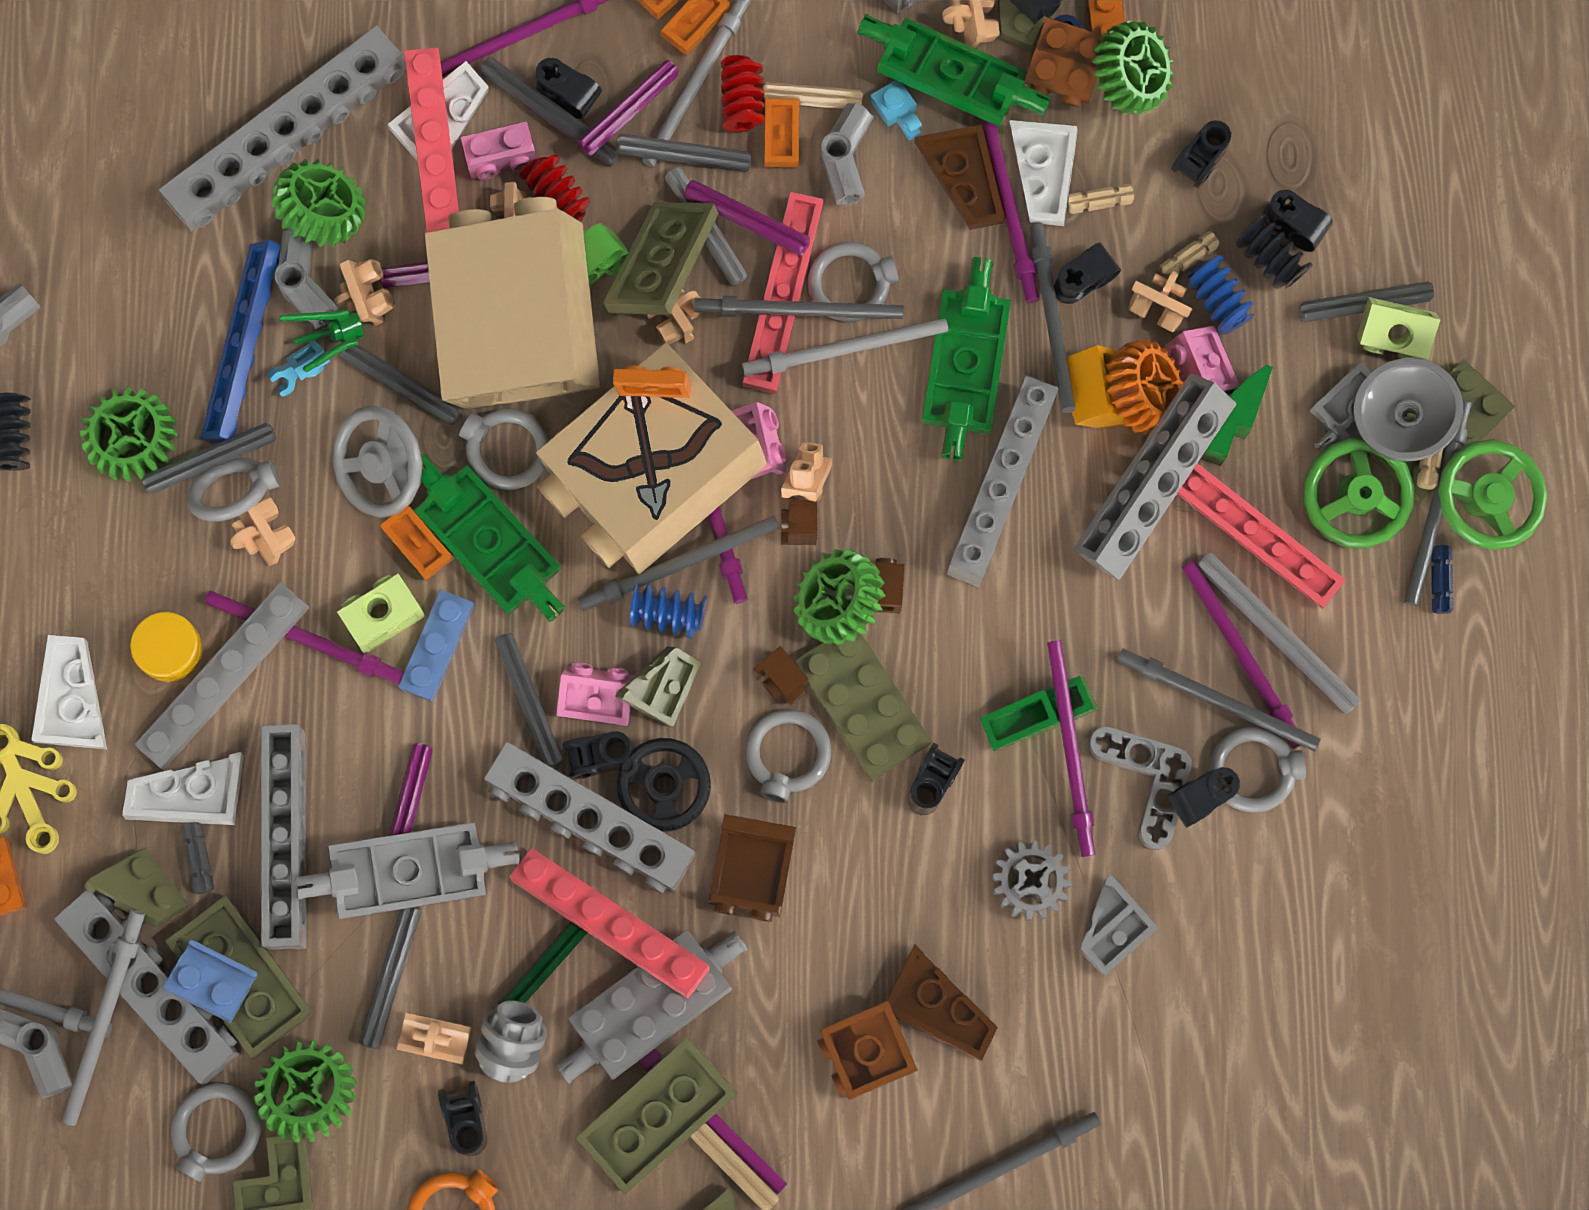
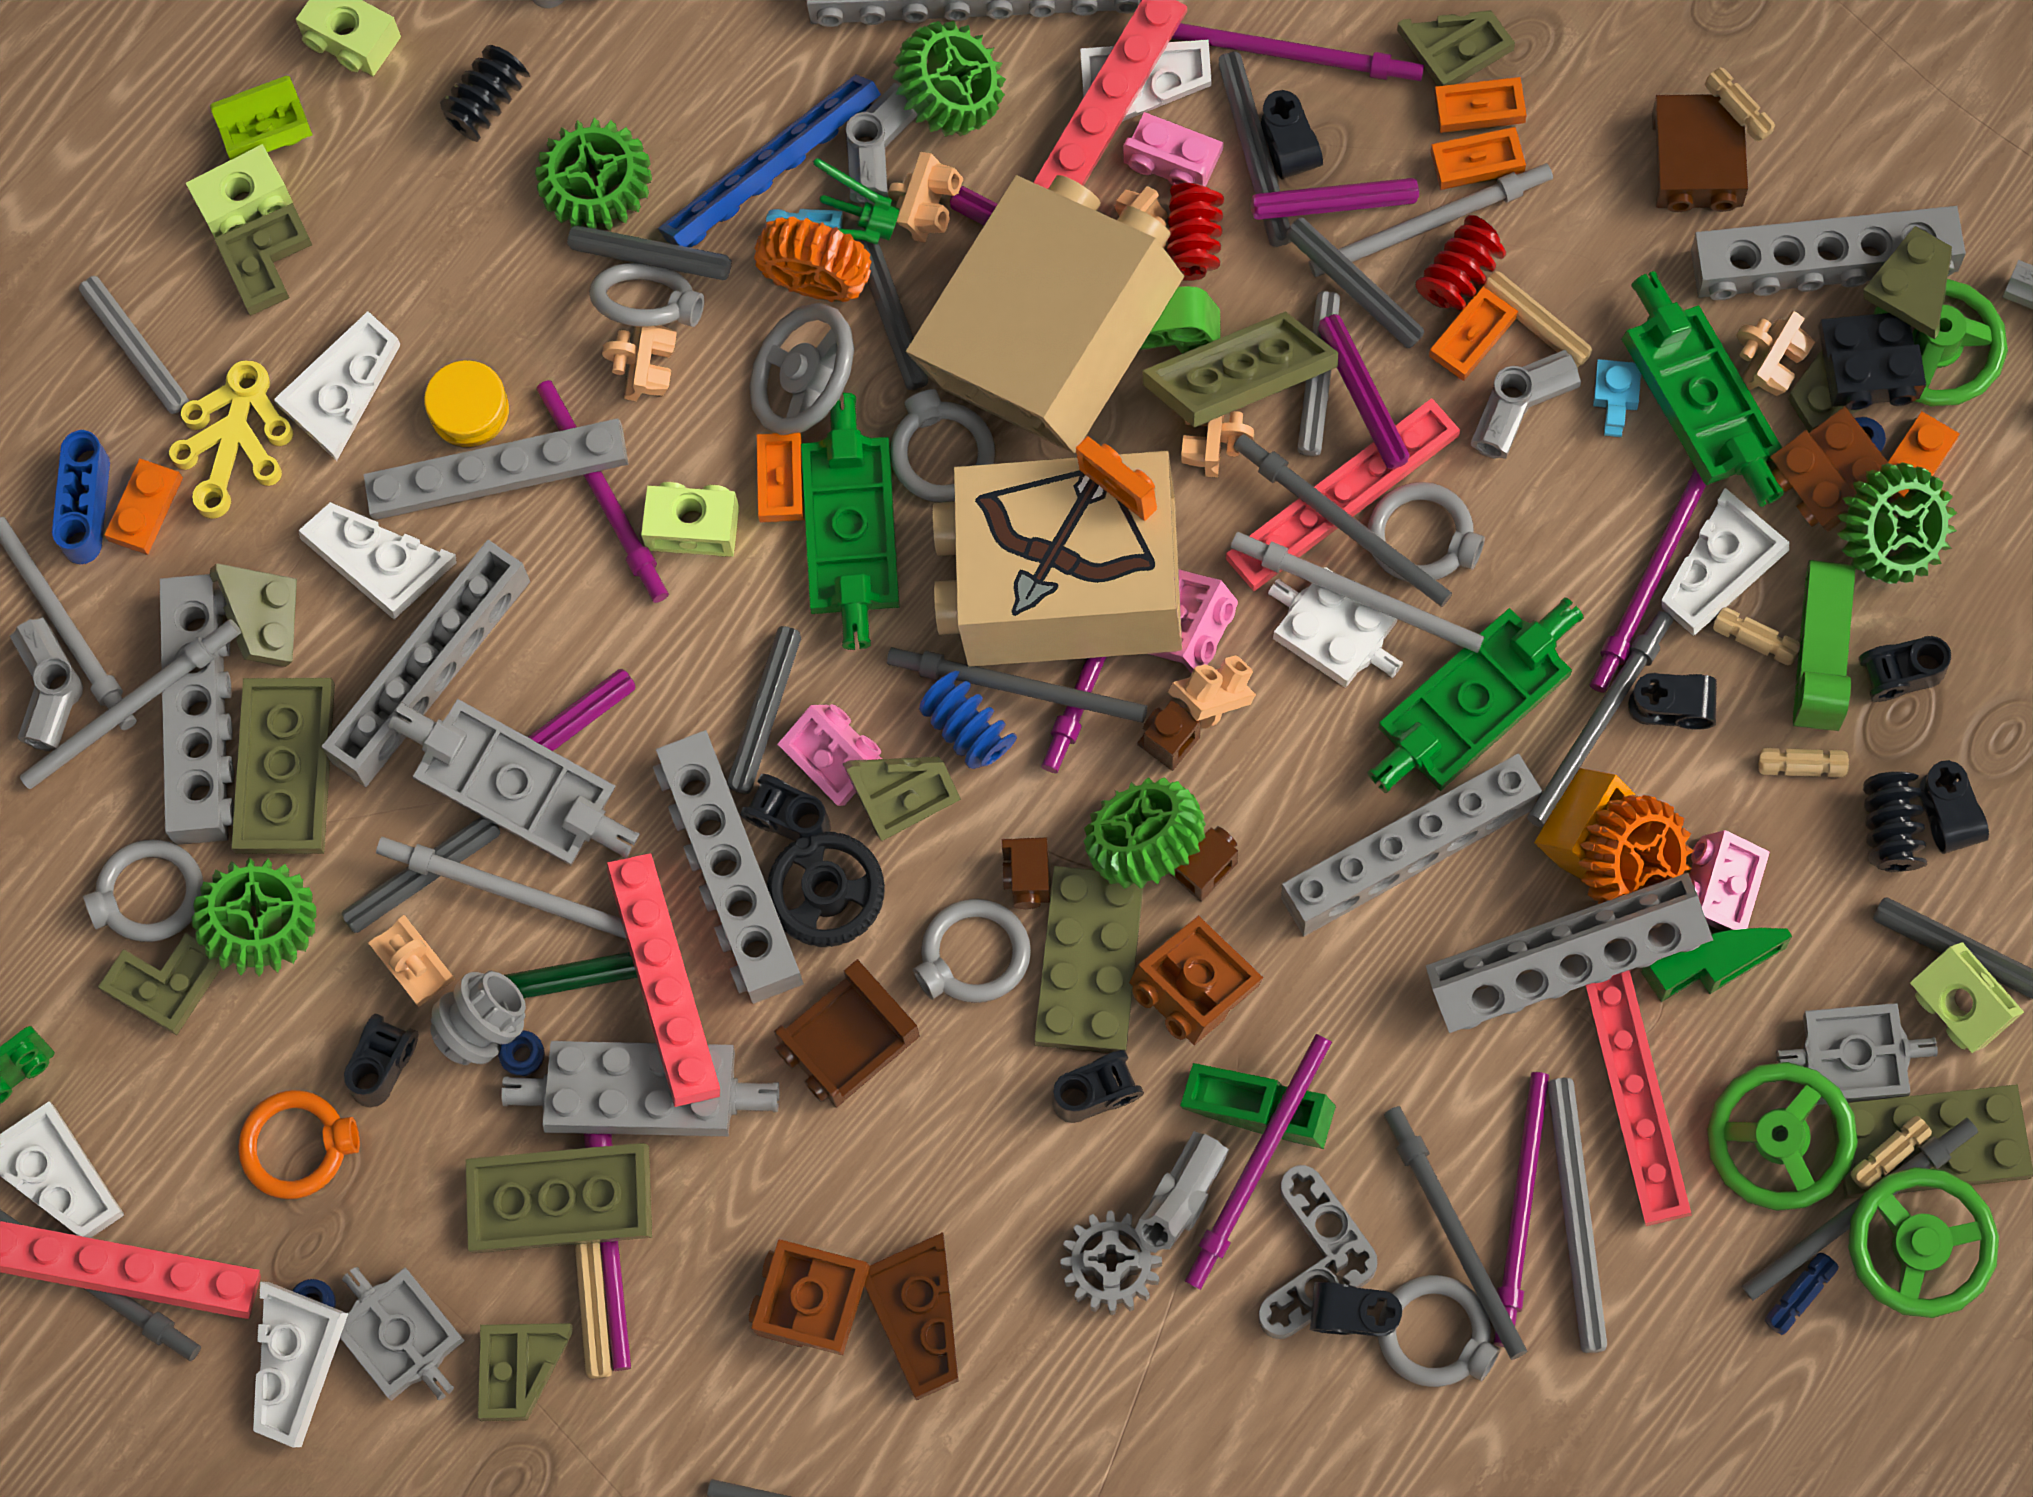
camera: 50 degrees right, 5 degrees down
(197, 858) = (335, 625): dark grey axle -> none
(210, 981) = (251, 745): medium blue plate -> none
(325, 384) = (812, 259): none -> orange gear
(388, 967) = (423, 860): none -> light grey bar
(436, 646) = (719, 592): medium blue plate -> none
(565, 1041) = (531, 1064): none -> dark blue plate
(846, 383) = (1333, 632): none -> white plate
(940, 666) = (1194, 981): none -> dark orange plate
(965, 172) = (1632, 509): reddish brown wing -> none
(1040, 805) = (1181, 1193): none -> light grey piece
(1114, 928) = (1157, 1377): light grey wing -> none
(1145, 296) = (1720, 768): light nougat hips -> none
(1154, 188) = (1821, 675): none -> bright green beam
(1219, 295) = (1799, 824): blue piece -> none
(1404, 388) = (1890, 1059): light grey dish -> none

